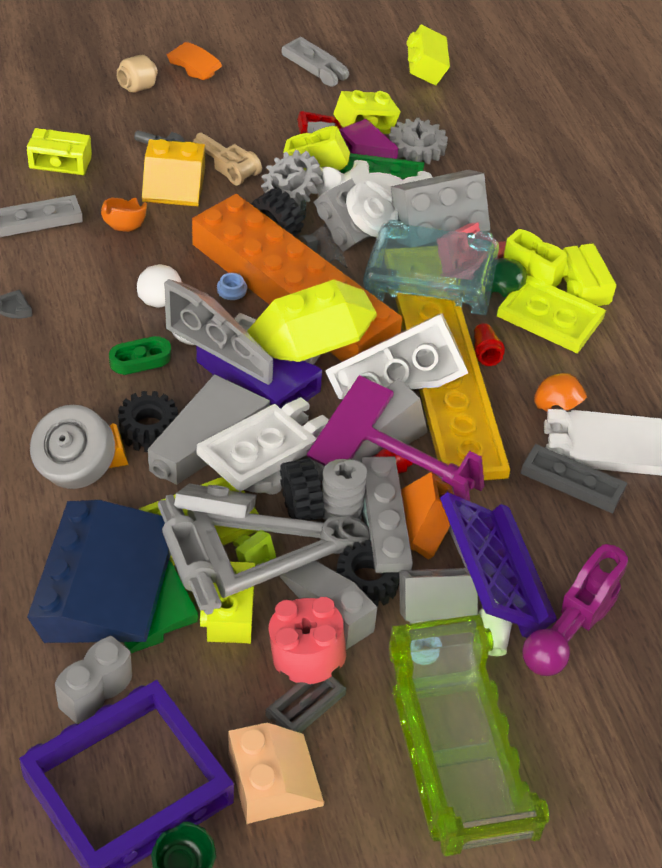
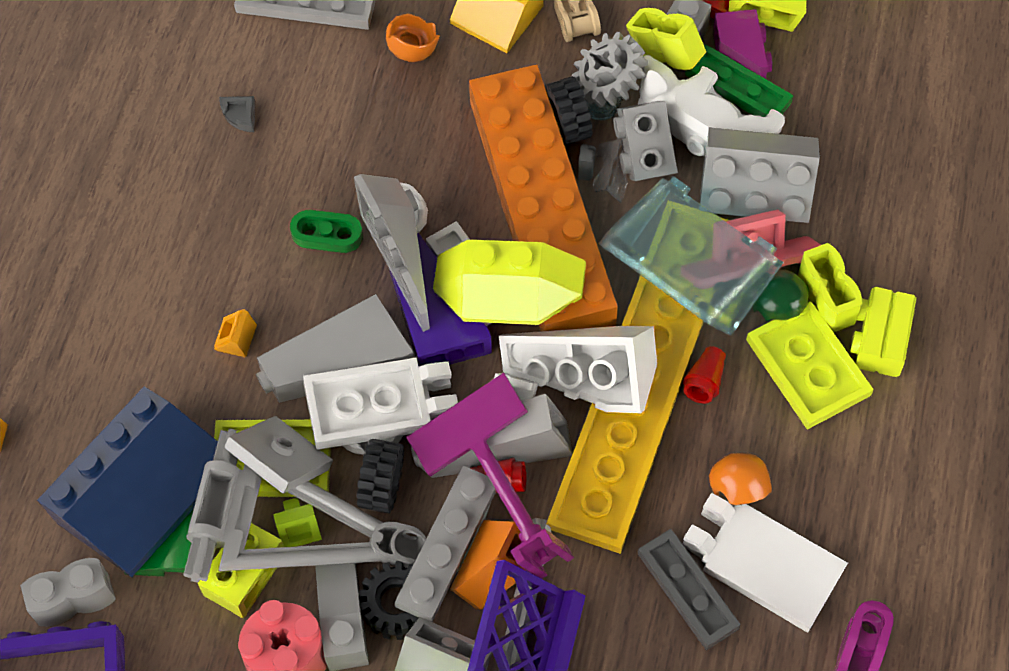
camera: 35 degrees right, 15 degrees up
(72, 446) = (190, 320): light grey wheel -> none
(145, 407) = (280, 299): black tyre -> none
(151, 284) = (397, 149): white hair -> none
(231, 286) = (470, 173): light blue plate -> none
(344, 489) = (417, 496): light grey piece -> none
(370, 207) = (671, 147): white tile -> none
(419, 140) = (808, 59): light grey gear -> none

